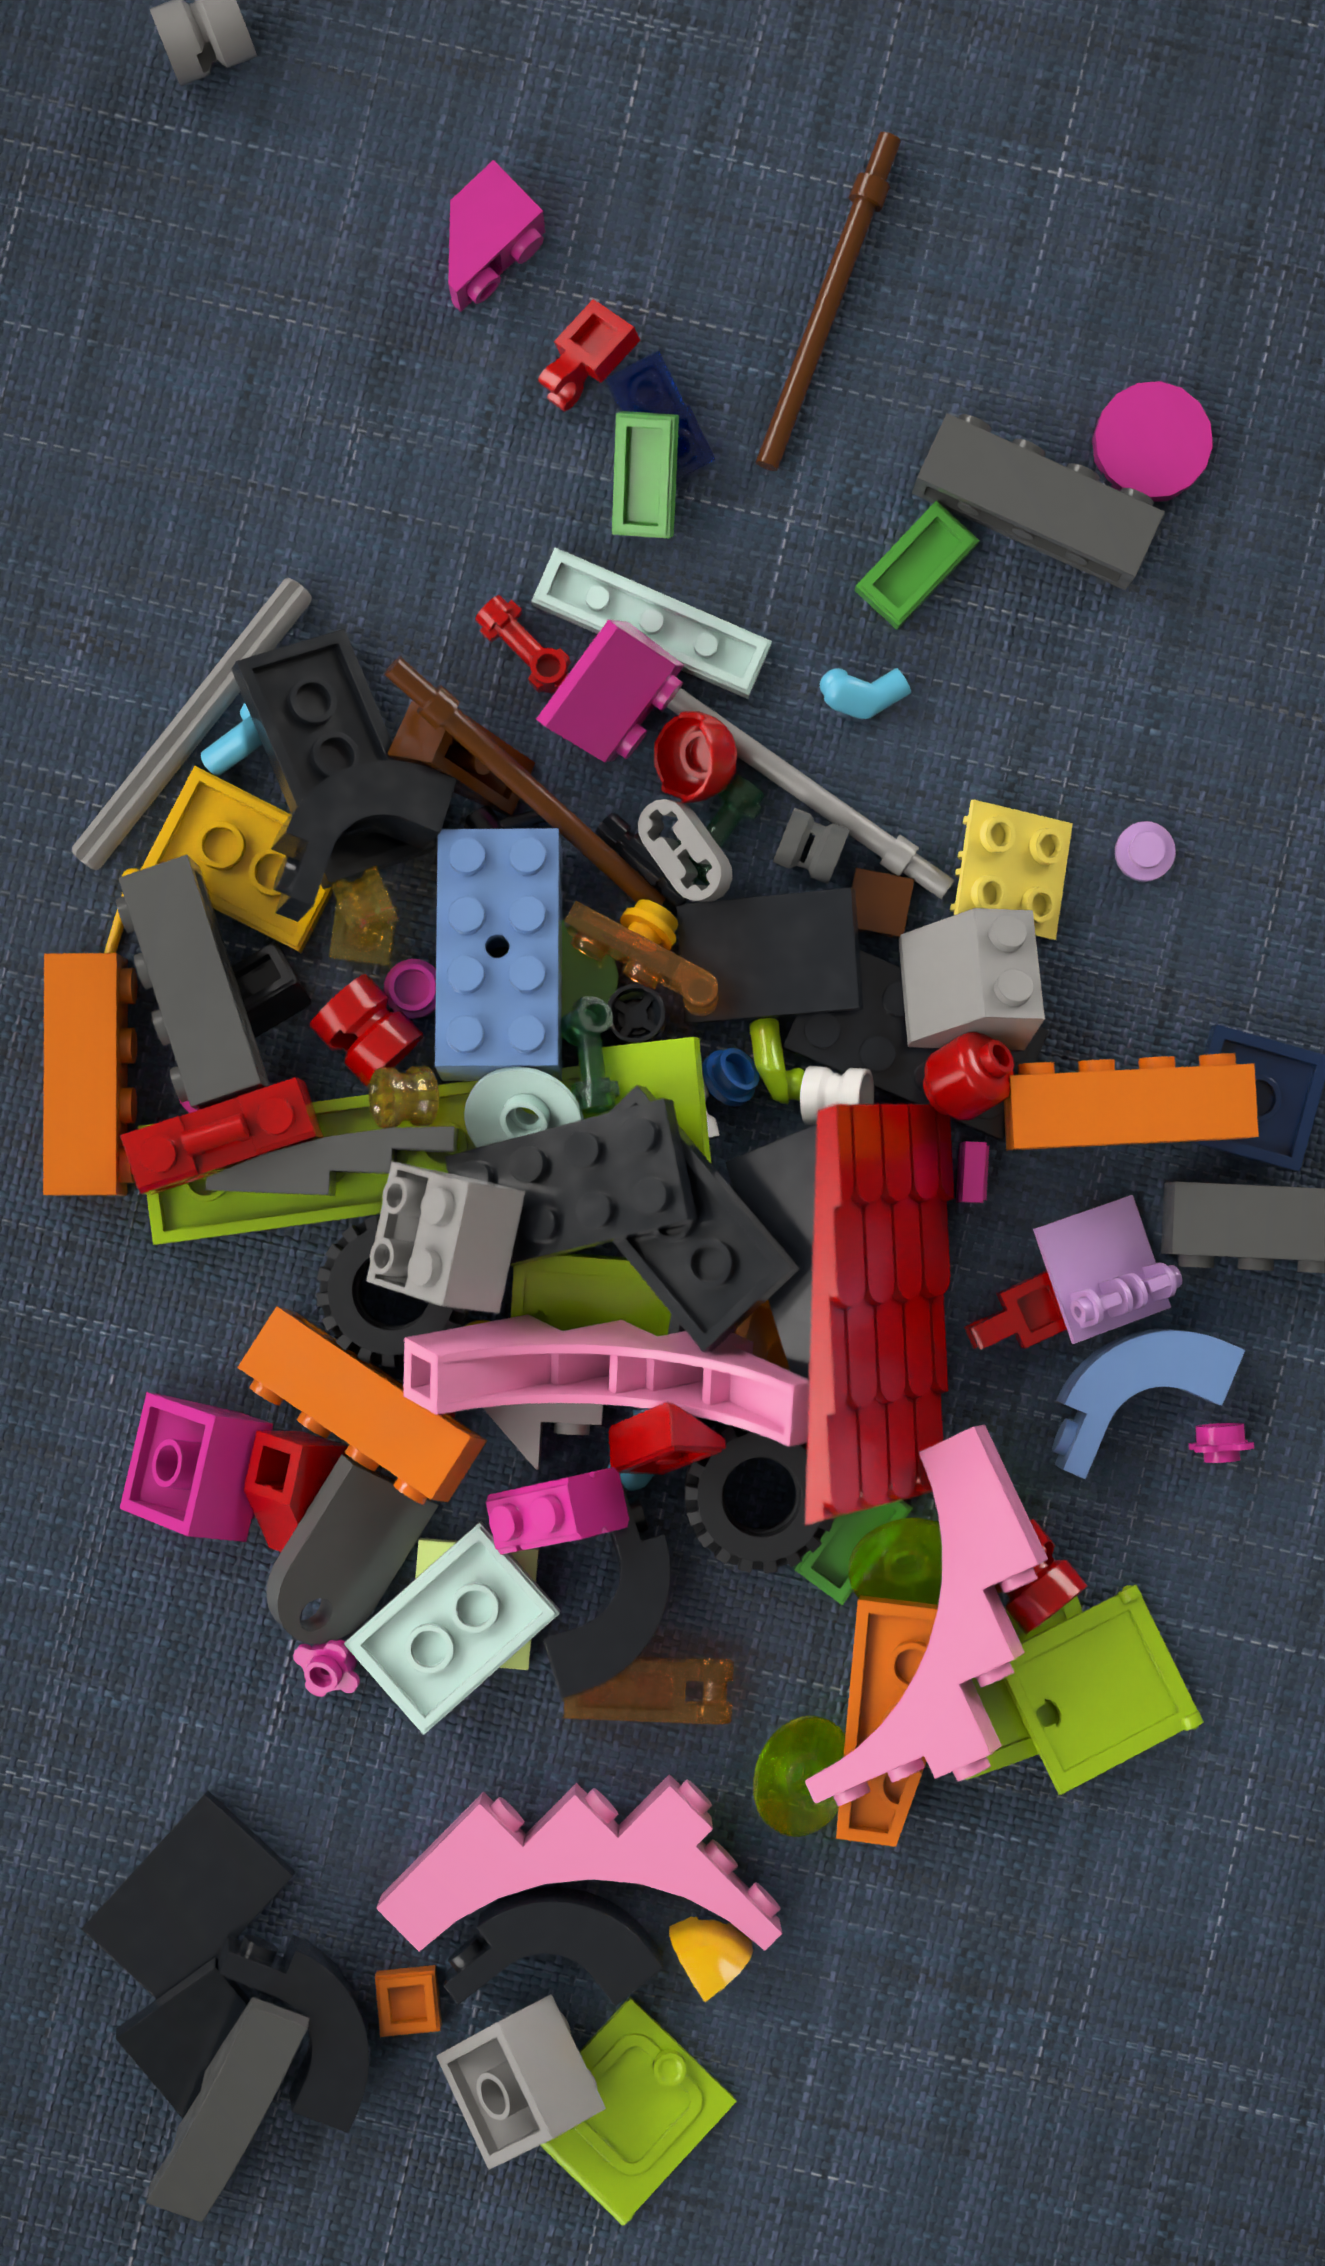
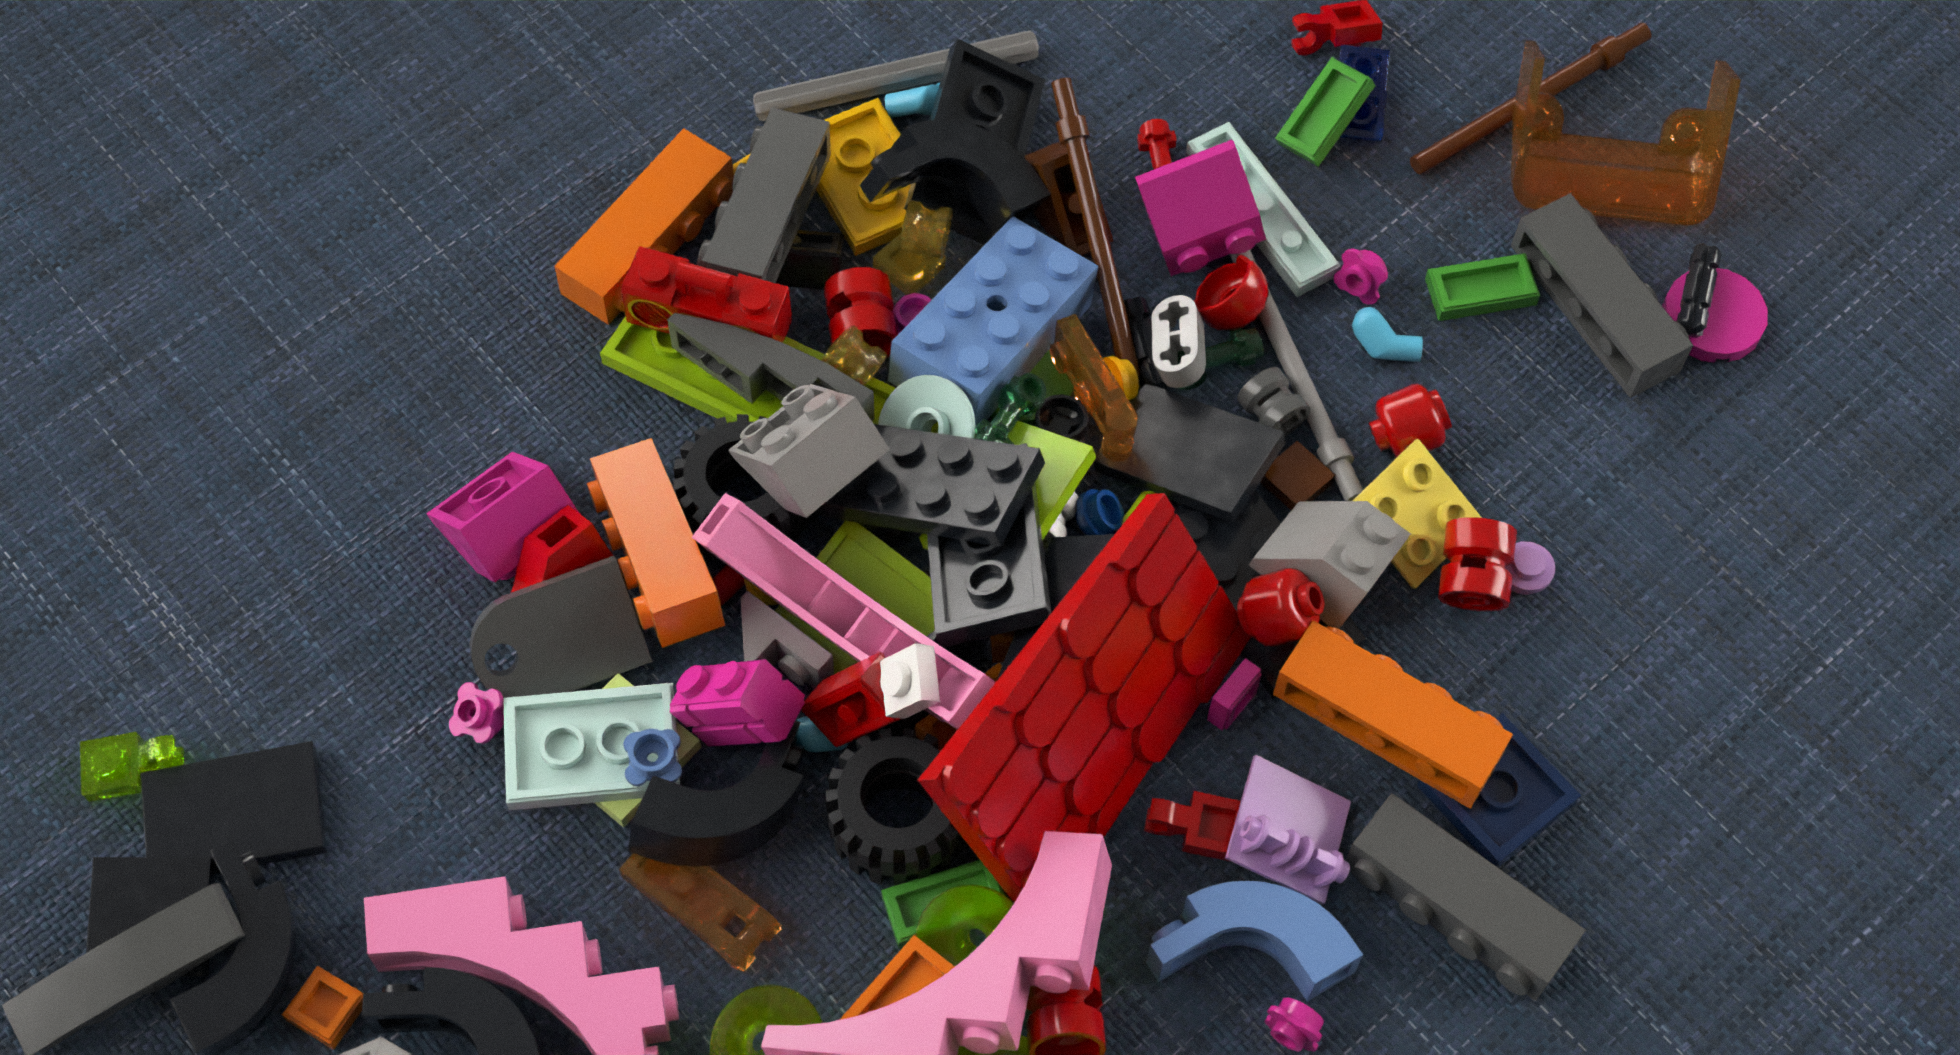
camera: 40 degrees right, 25 degrees down
(55, 1930) = (114, 763): none -> clear neon green plate
(521, 1628) = (641, 745): none -> medium blue plate
(718, 1419) = (909, 681): none -> white plate
(800, 639) = (1361, 274): none -> dark pink plate
(948, 775) = (1410, 416): none -> red head
(970, 336) = (1615, 176): none -> clear orange windscreen
(1097, 873) = (1477, 564): none -> red wheel
(1128, 434) = (1699, 289): none -> black axle

